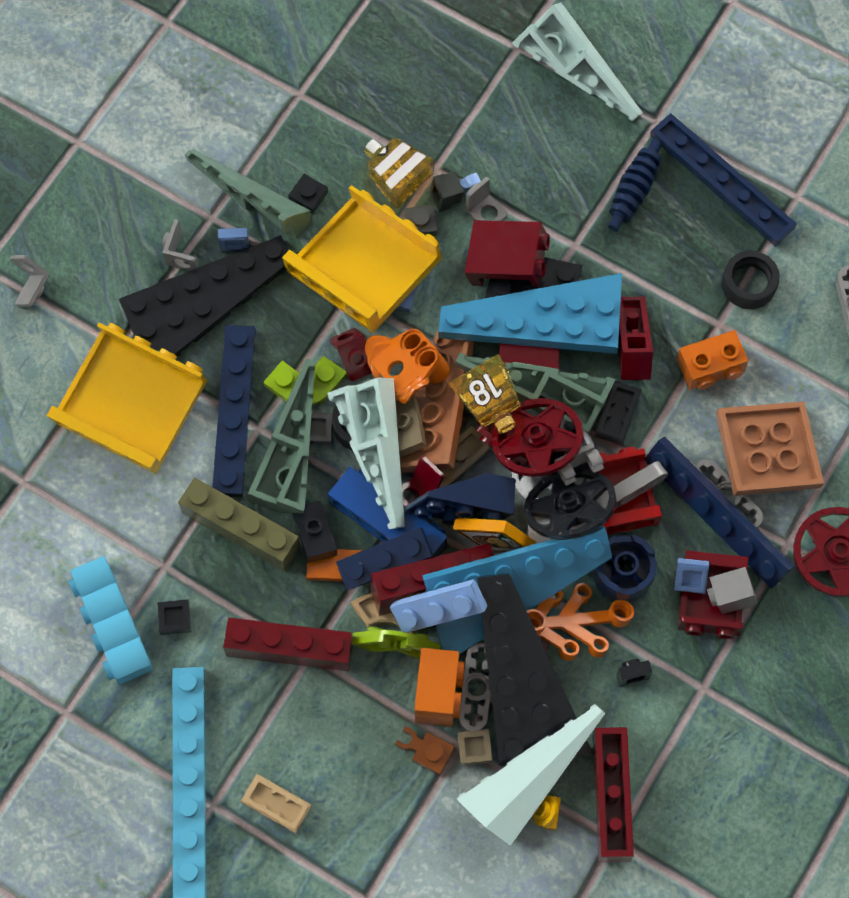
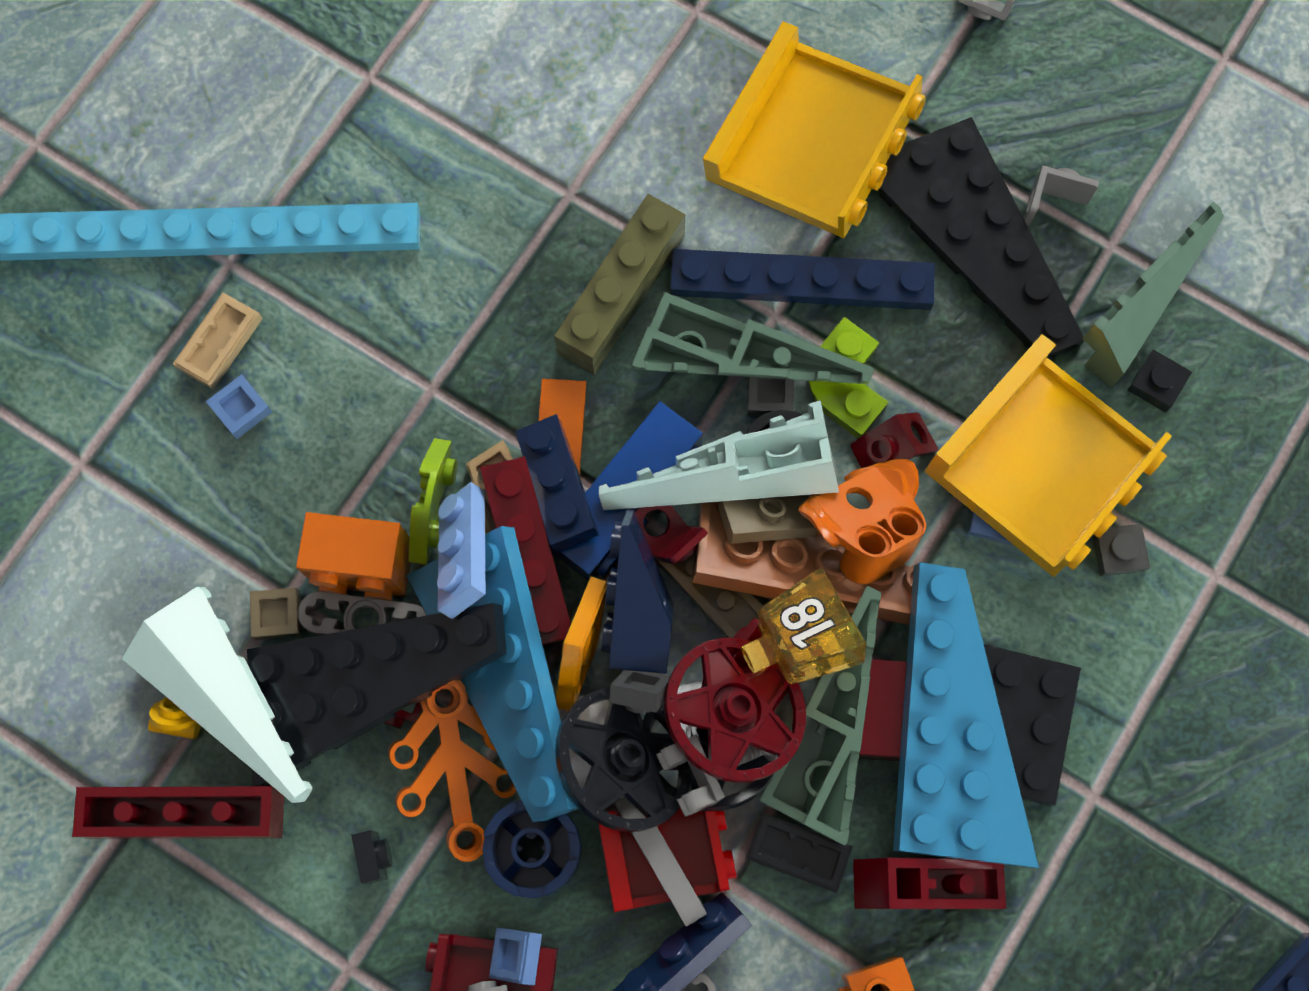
camera: 90 degrees right, 5 degrees up
(111, 620) = (487, 122): medium azure brick -> none
(174, 617) = (490, 203): black plate -> none
(233, 239) = (1073, 270): medium blue tile -> none
(288, 644) = (439, 351): dark red brick -> none
(315, 533) = (607, 389): black plate -> none
(326, 784) = (239, 406): none -> medium blue plate
(397, 169) = (1209, 513): clear yellow torso -> none
(430, 752) = (276, 552): dark orange plate -> none
(448, 190) = (1176, 592): pearl dark grey piece -> none
(479, 198) = (1166, 640): light grey bracket -> none
(507, 251) = (1068, 679): dark red panel -> none
(528, 491) = (639, 691): none -> dark grey plate
(635, 185) = (1208, 901): dark blue piece -> none

